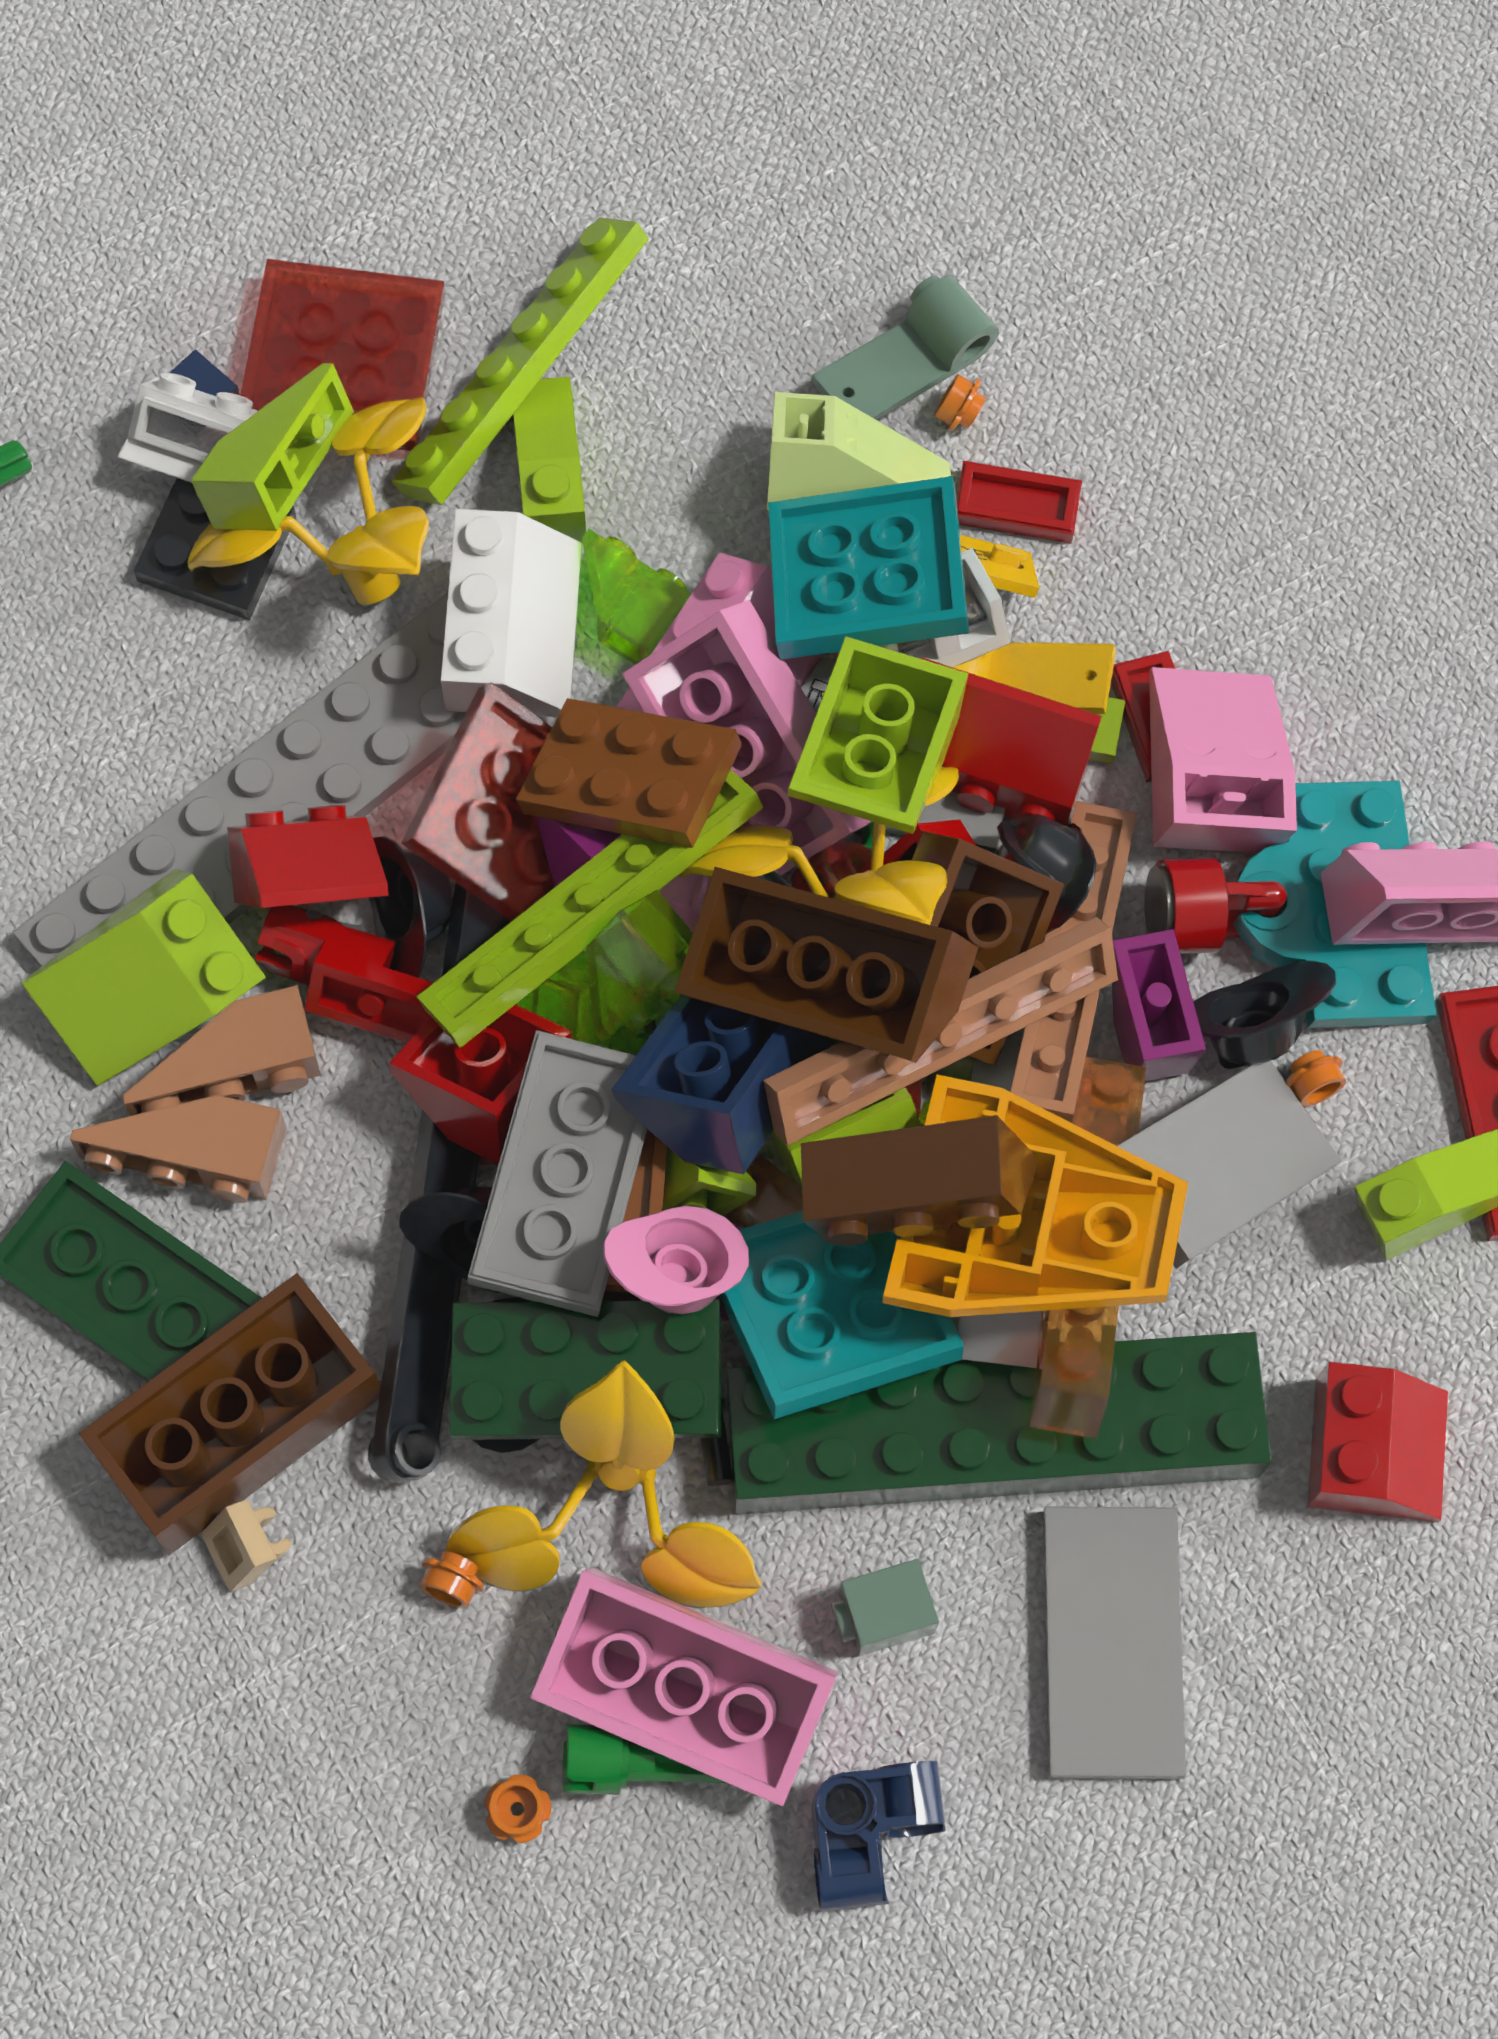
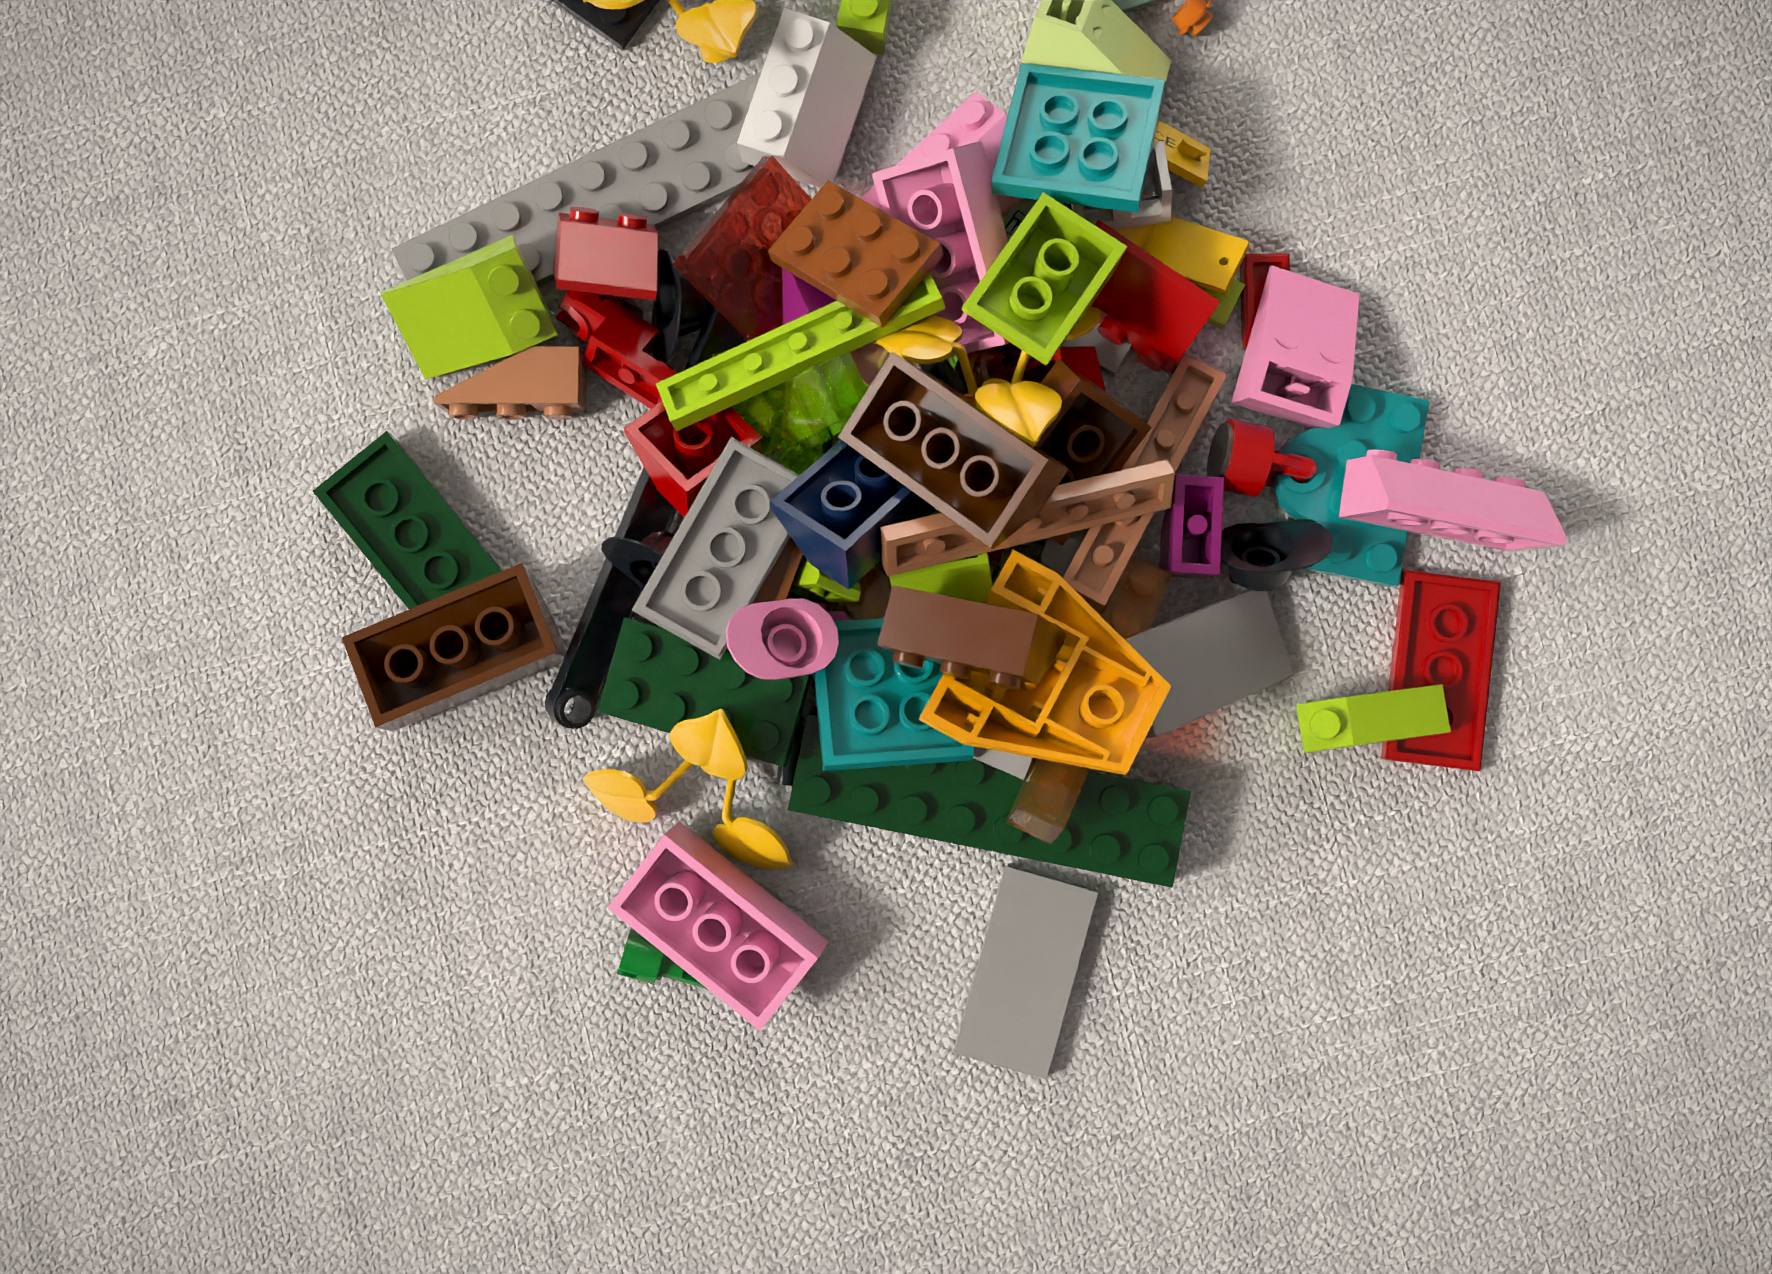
camera: 25 degrees right, 15 degrees up
(199, 1142) = (487, 441): nougat slope -> none
(241, 1545) = (441, 739): tan tile -> none
(451, 1579) = (580, 802): orange plate -> none
(517, 1790) = (572, 976): orange plate -> none
(629, 598) = (900, 109): clear neon green slope -> none
(885, 1608) = (872, 908): sand green brick -> none
(895, 1804) = (842, 1041): dark blue piece -> none
(1018, 502) = (1212, 105): red tile -> none
(1055, 852) = (1151, 396): black piece -> none
(1315, 1077) = (1294, 608): orange plate -> none
(1377, 1443) = (1253, 887): red slope -> none

